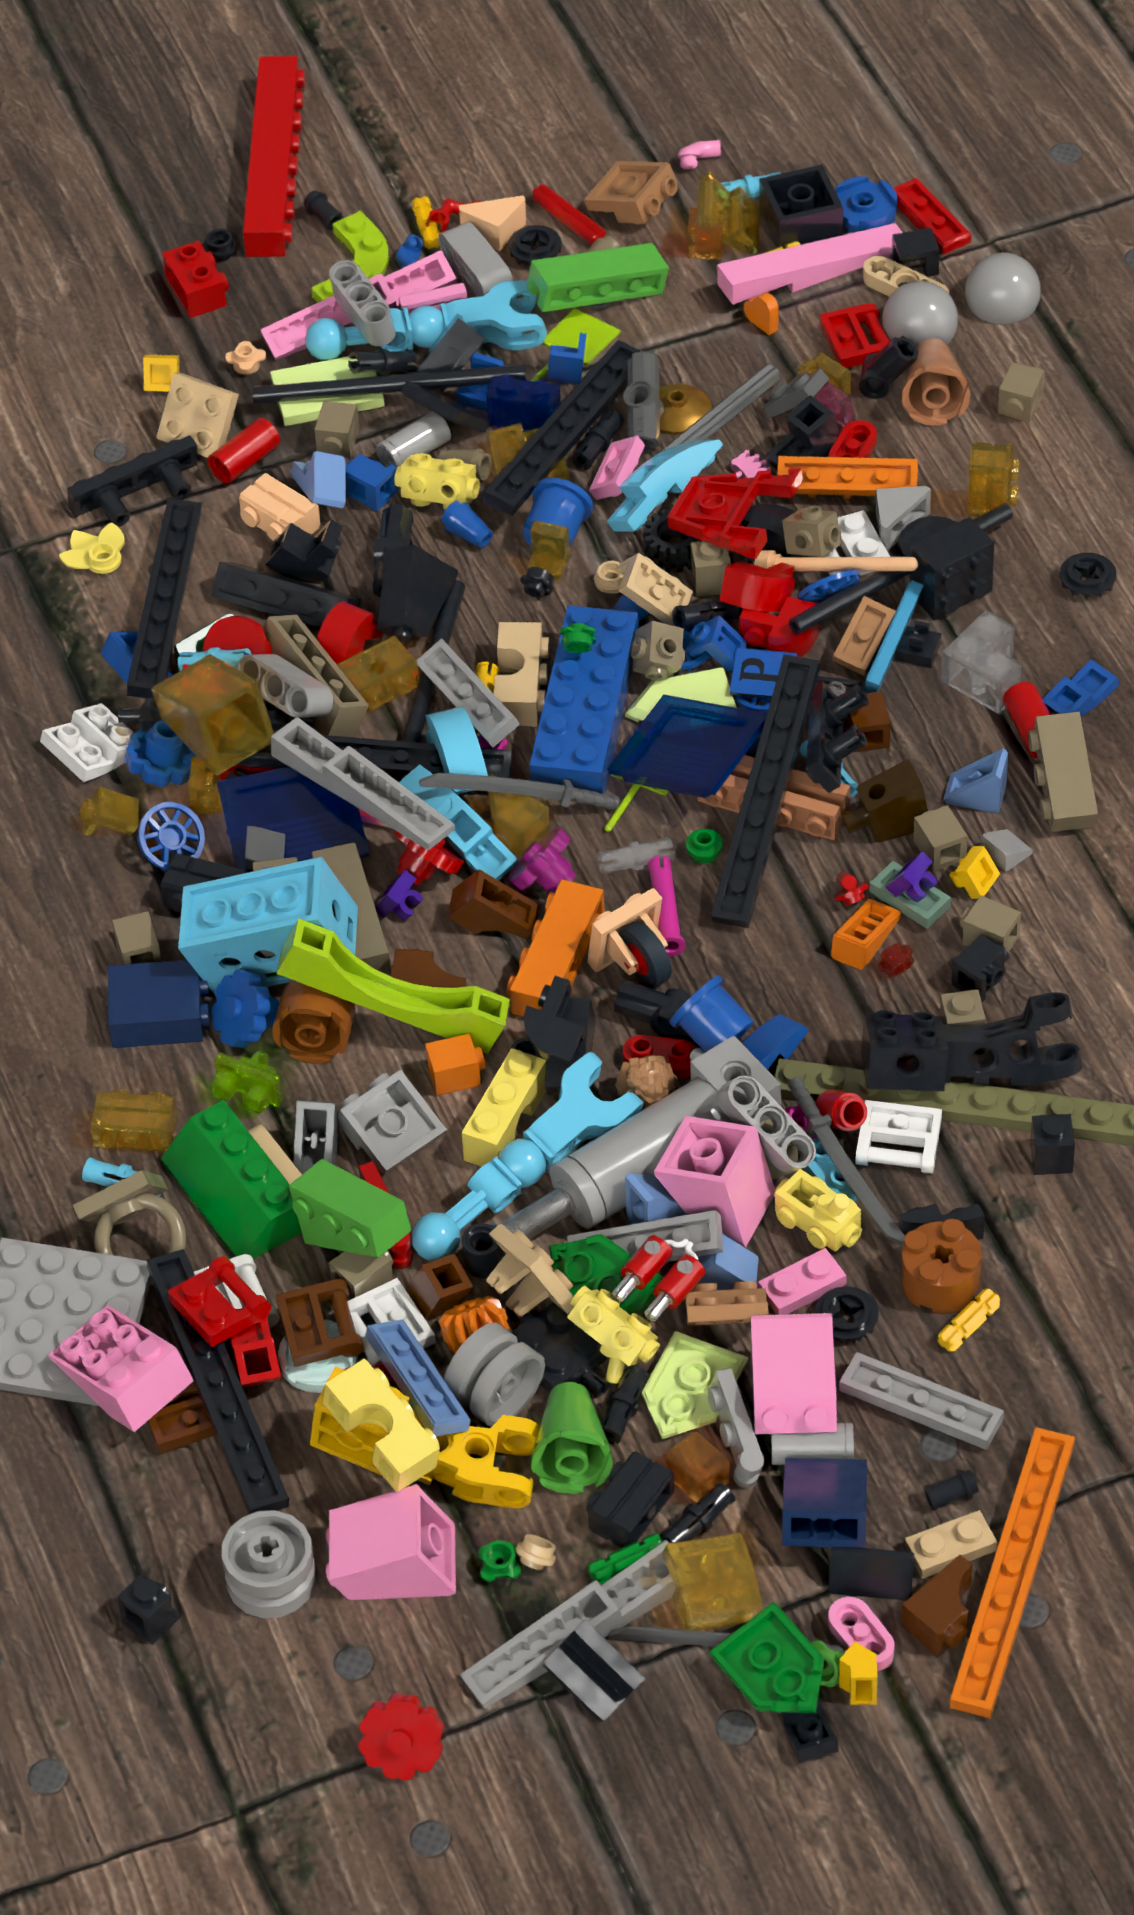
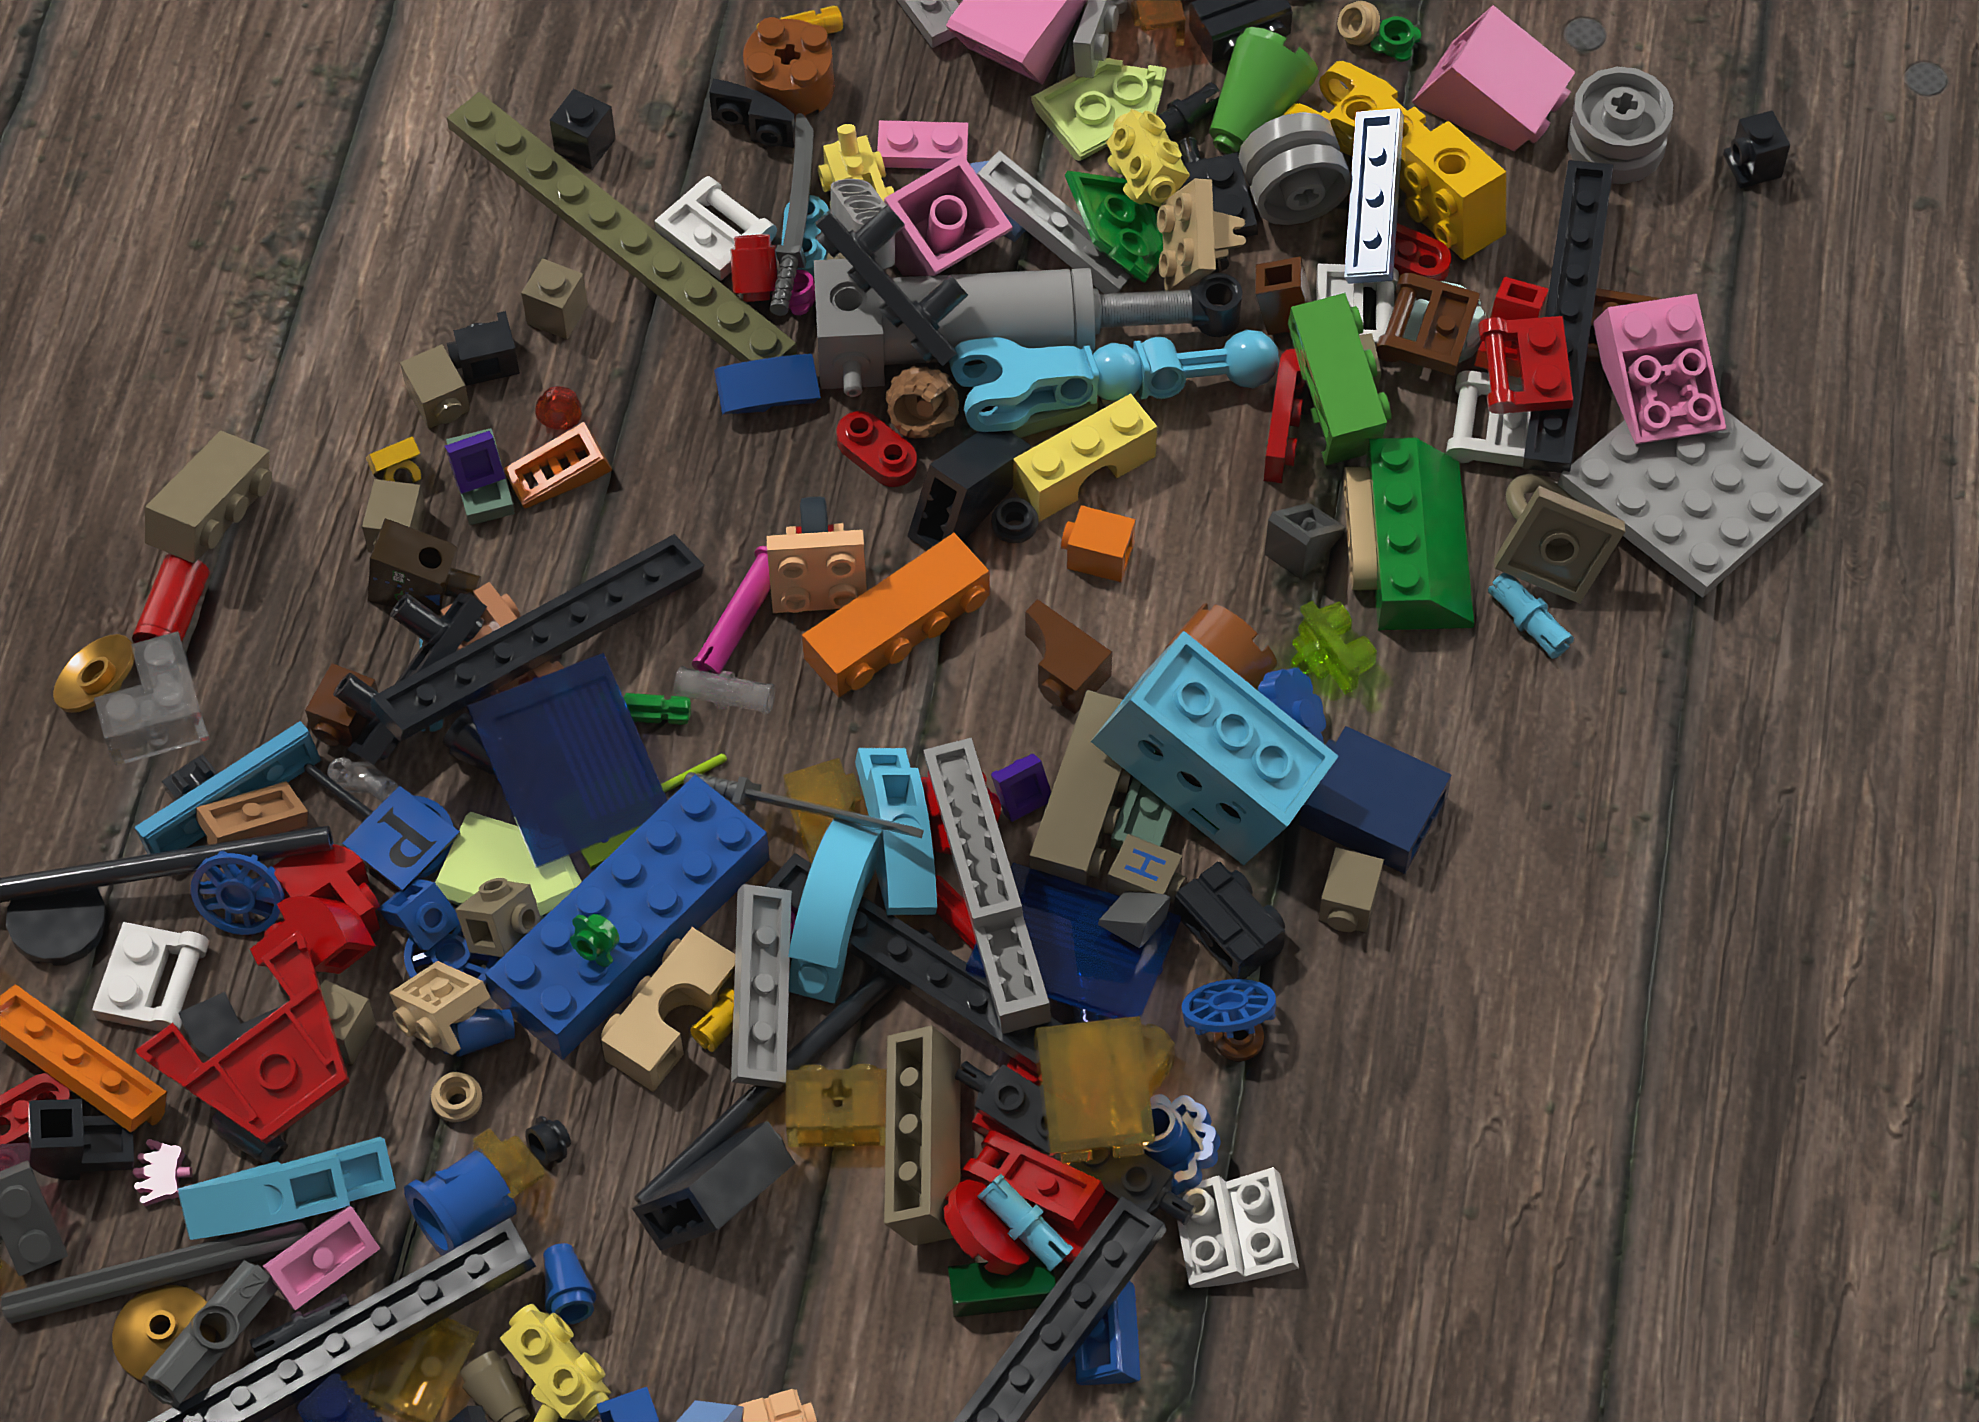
camera: 150 degrees left, 10 degrees up
(111, 811) = (1277, 1099): clear yellow bracket -> none
(134, 1120) = (1482, 667): clear yellow brick -> none
(276, 593) = (858, 1316): black panel -> none
(287, 686) = (974, 1102): light grey beam -> none
(302, 555) = (796, 1349): black brick -> none
(323, 962) = (1070, 577): lime arch -> none
(346, 631) = (829, 1176): red brick -> none
(365, 1397) = (1461, 126): light yellow arch -> none
(389, 1121) = (1212, 514): light grey plate -> none
(394, 533) = (686, 1296): black piece -> none
(468, 1317) = (1286, 228): orange gear -> none
(490, 905) = (932, 702): reddish brown arch -> none
(544, 863) = (839, 717): magenta plant -> none
(548, 1033) = (989, 448): black brick -> none
(648, 1200) = (1015, 250): medium blue slope -> none
(648, 1262) = (1078, 171): red piece -> none
(651, 1007) = (831, 475): black piece -> none
(664, 553) = (360, 1123): black tyre -> none
(681, 822) = (654, 708): none -> green axle
(690, 614) = (400, 954): black pin -> none
(702, 1066) = (860, 252): none -> black plate
(704, 845) = (642, 676): green plate -> none
(712, 1016) = (817, 393): blue piece -> none
(714, 1306) = (1026, 119): medium nougat plate -> none
(812, 532) = (192, 969): dark tan brick -> none
(816, 564) = (263, 990): light nougat piece -> none
(852, 891) = (535, 516): red plate -> none
(855, 1303) = (893, 80): black gear -> none
(898, 508) = (63, 973): light grey slope -> none
(925, 1053) = (630, 267): black brick -> none
(953, 567) = (80, 821): black brick -> none
(979, 783) = (295, 557): medium blue slope -> none
(1005, 848) = (334, 480): light grey slope -> none
(1039, 656) = (94, 673): none -> pearl gold dish
(1083, 691) = (77, 624): blue slope -> none

